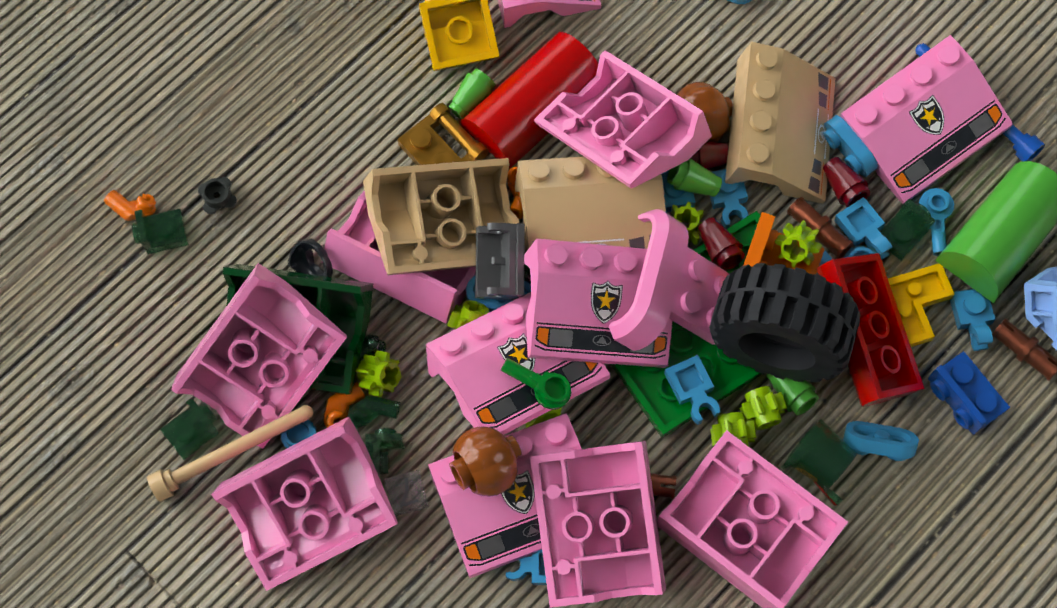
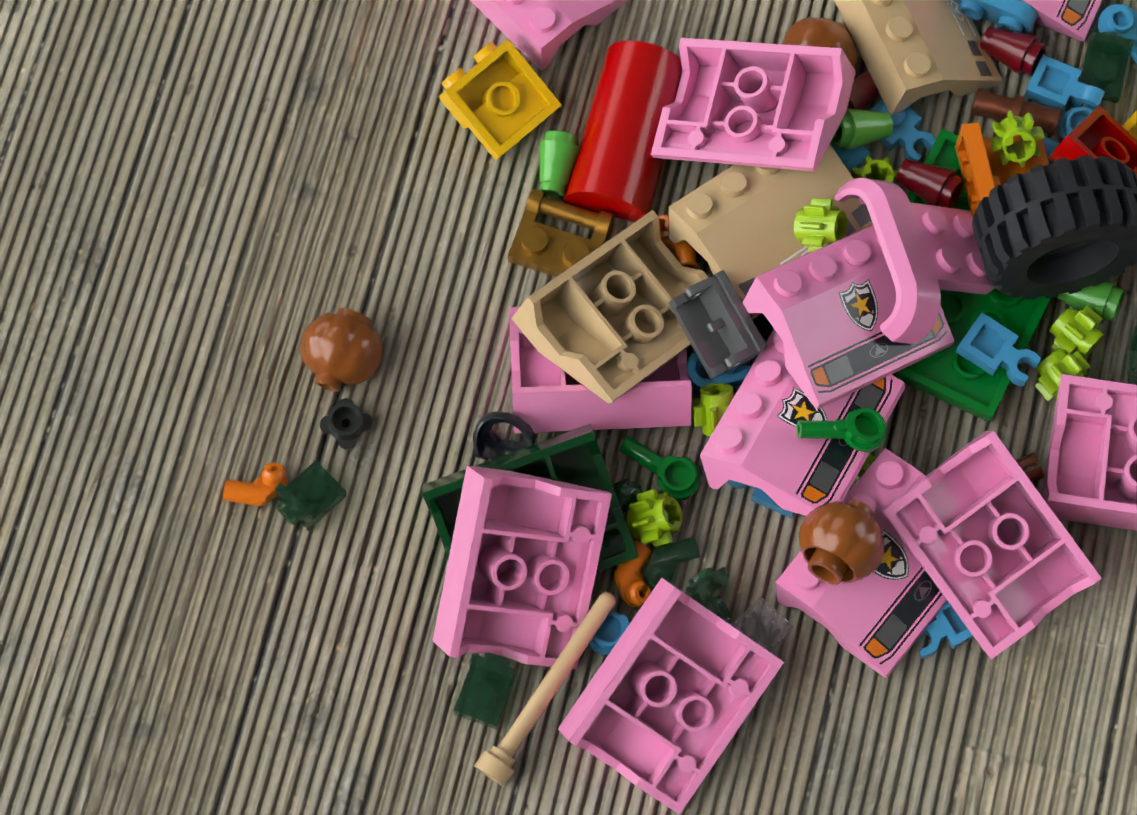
camera: 30 degrees left, 0 degrees up
(244, 143) = (341, 349): none -> dark orange plant
(413, 349) = (675, 475): none -> green plate
(615, 228) = (819, 224): none -> lime gear

